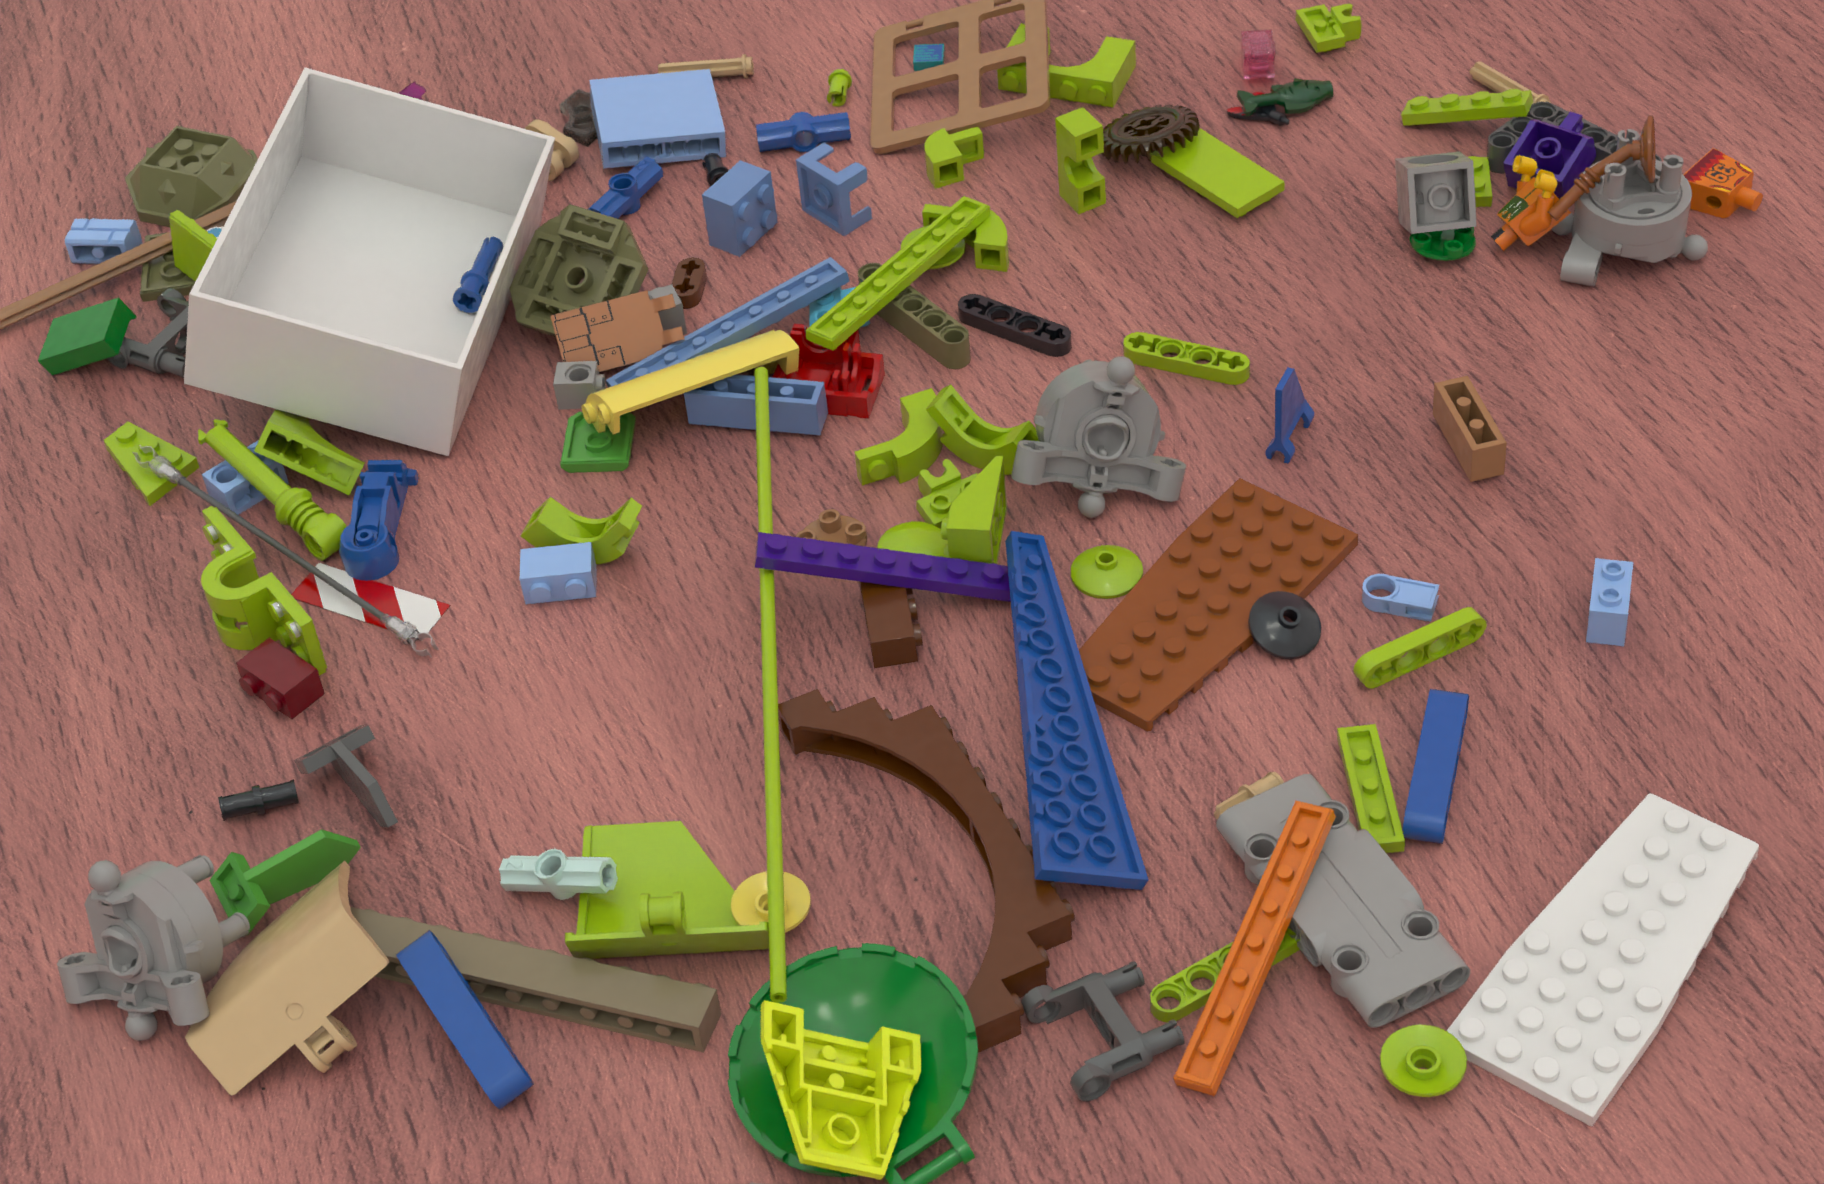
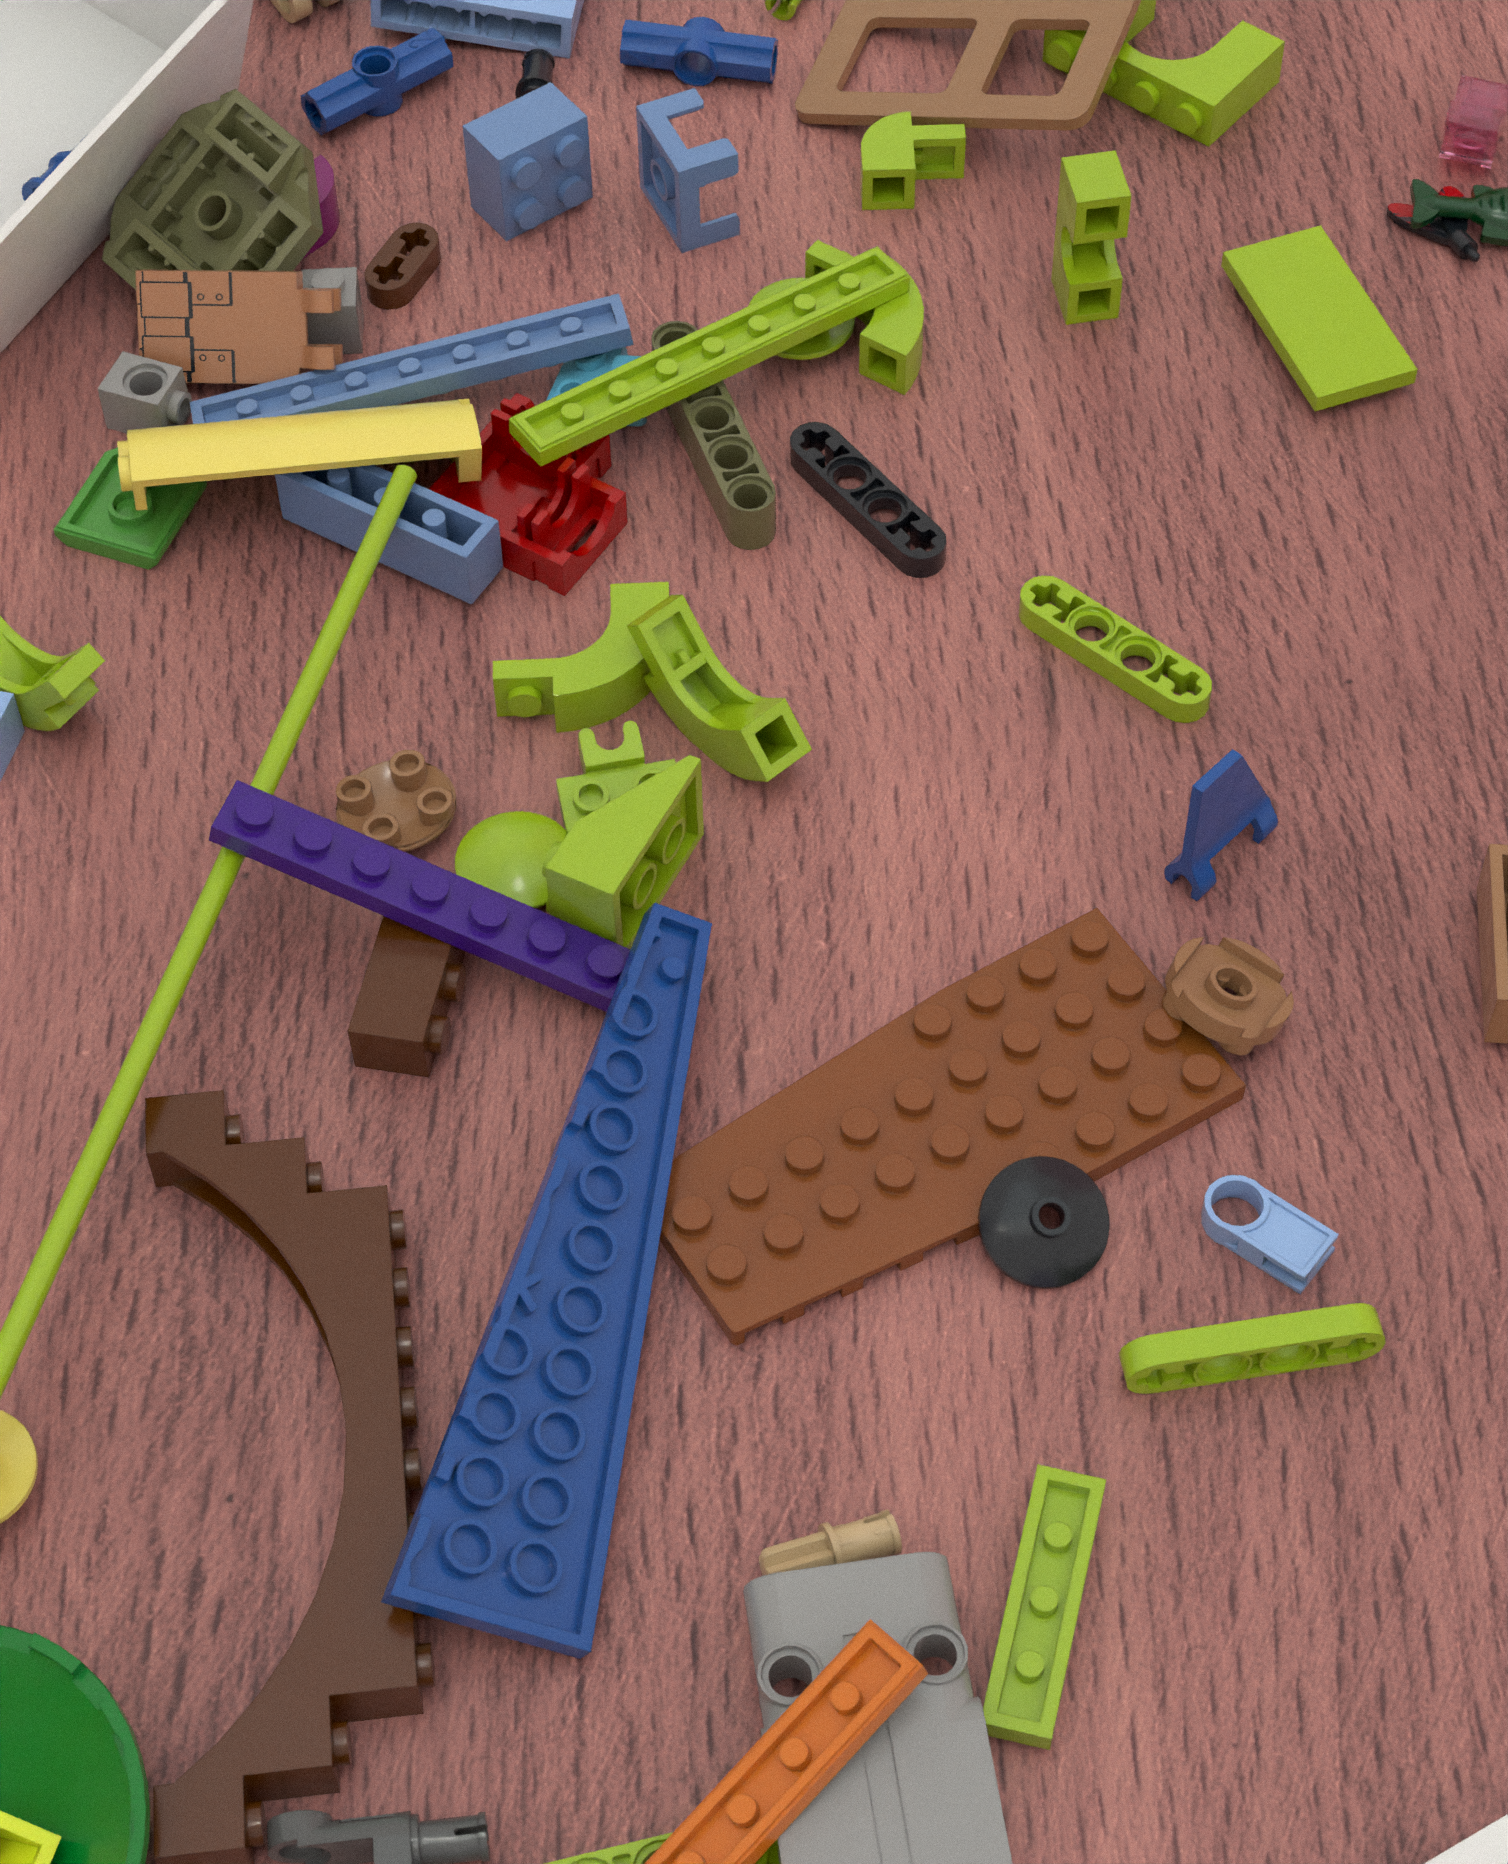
camera: 15 degrees right, 10 degrees up
(1100, 436) = (877, 770): light grey piece -> none
(1106, 571) = (805, 1030): lime dish -> none
(1149, 131) = (1234, 213): dark brown gear -> none
(1329, 494) = (1198, 996): none -> medium nougat plate
(1435, 766) = (1173, 1602): blue beam -> none

